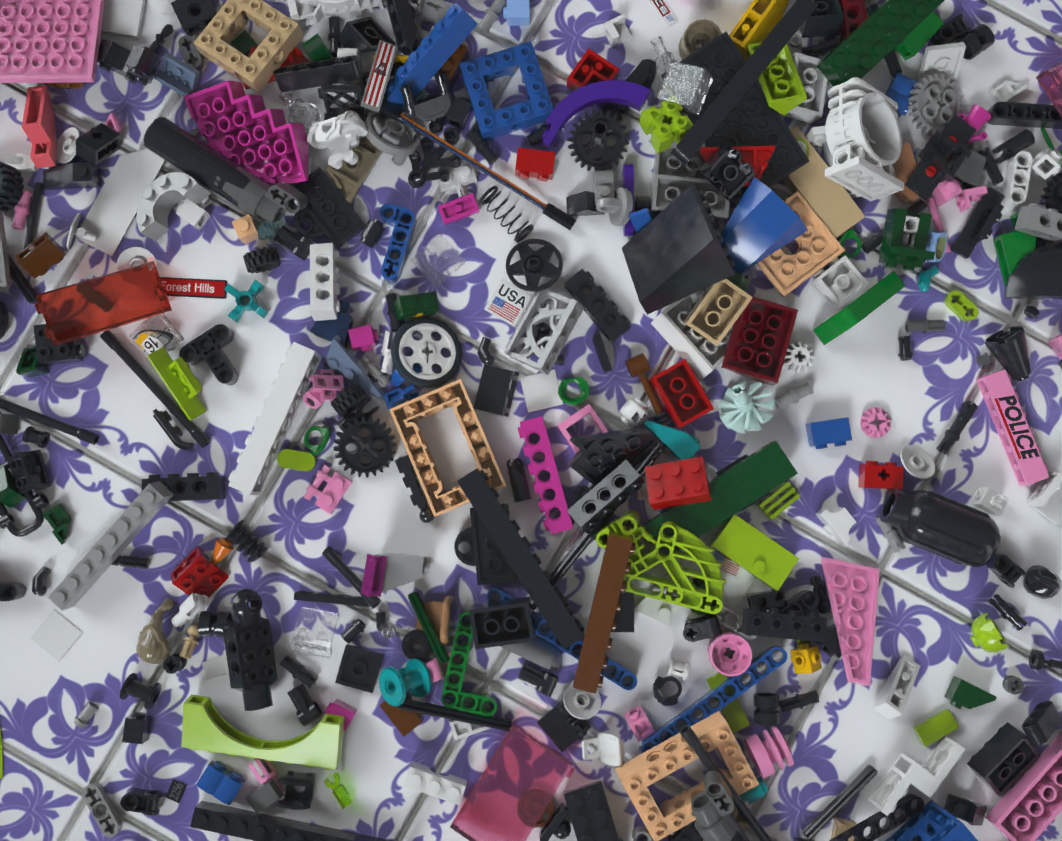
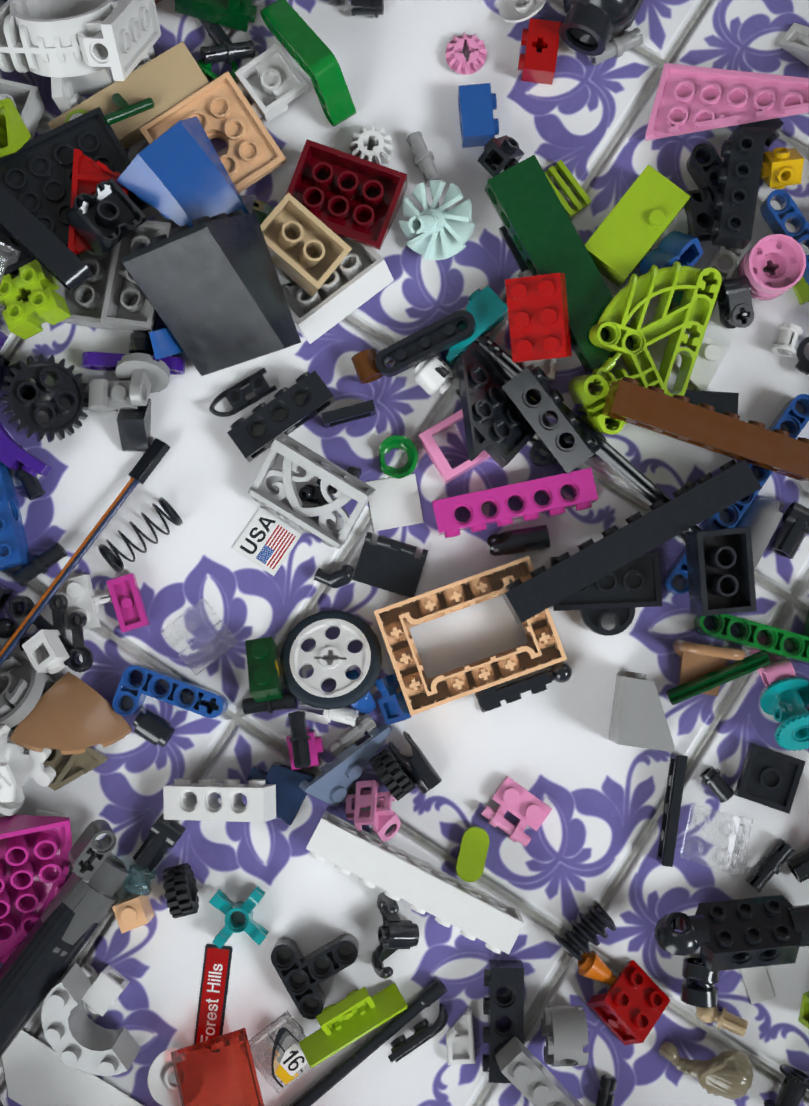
camera: 80 degrees left, 0 degrees up
(168, 459) = (461, 1040): none -> white tile
(172, 668) = (756, 1051): black bush -> none
(174, 529) = (565, 1035): none -> light grey brick
(190, 609) = (678, 1017): white arm -> none
(237, 407) = (392, 935): none -> black piece
(325, 432) = (436, 810): green piece -> none
(326, 211) = (116, 792): black plate -> none
(336, 561) = (620, 802): black piece -> none
(368, 333) = (299, 739): none -> black axle
(373, 575) = (649, 748): magenta hinge -> none
(374, 176) = (70, 719): none -> medium nougat brick
(377, 433) = (476, 772): black gear -> none
(386, 630) = (713, 742): arm -> none
(408, 646) = (740, 708): black gear -> none
(420, 155) = (46, 651): none -> white brick
(534, 164) = (71, 490): red brick -> none
(534, 265) = (216, 499): black wheel -> none
(609, 274) = (237, 396): none -> black piece
(654, 404) = (425, 343): none -> black plate
(681, 394) = (411, 304): red brick -> none
(737, 581) = (672, 248): none -> blue brick
(798, 451) = (500, 155): none -> black brick
(809, 180) = (126, 110): none -> dark green piece
(823, 606) = (677, 147): black axle -> none
(837, 523) = (601, 113): white brick -> none
(861, 249) = (227, 52): none -> black pin

